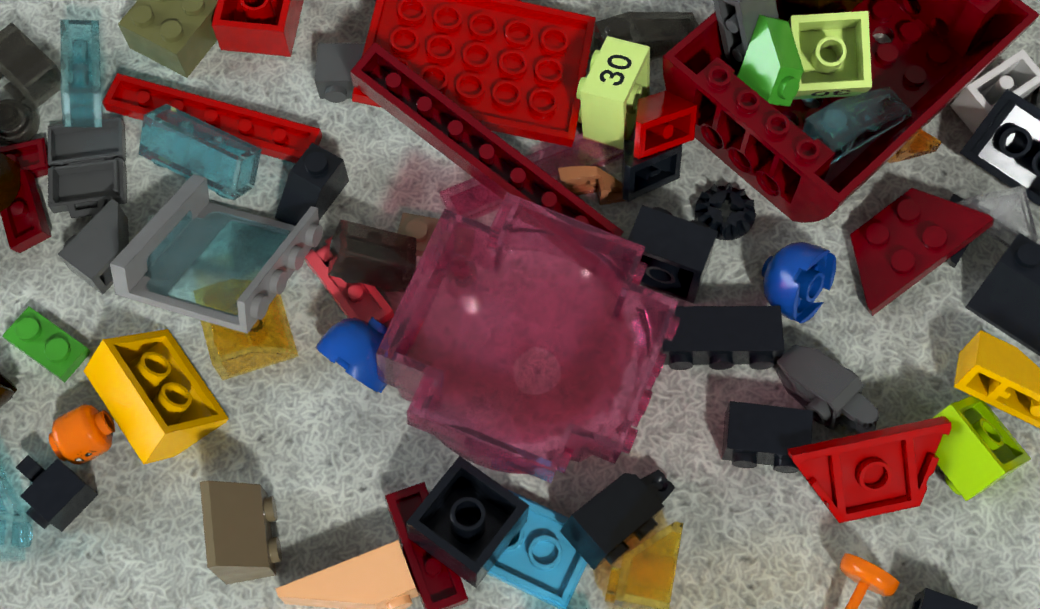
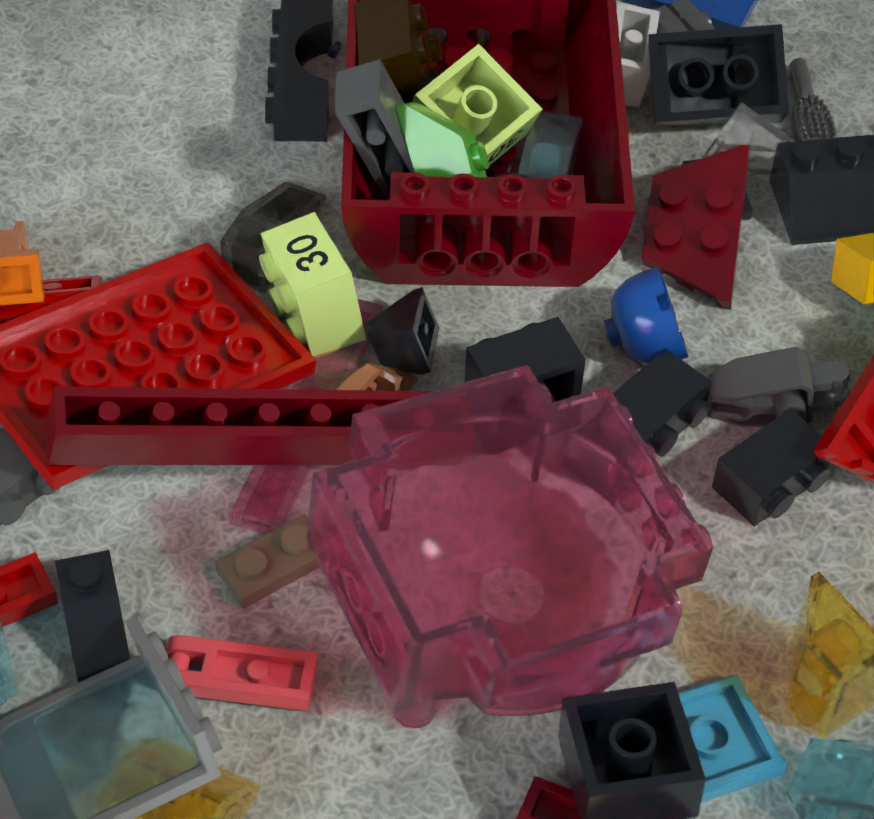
camera: 50 degrees left, 15 degrees down
(354, 347) = (341, 706): blue cylinder -> none
(372, 256) = (243, 615): clear smoke brick -> none
(616, 516) = (742, 644): black hinge -> none
(663, 123) = (387, 279): red slope -> none
(737, 223) = (493, 315): black gear -> none

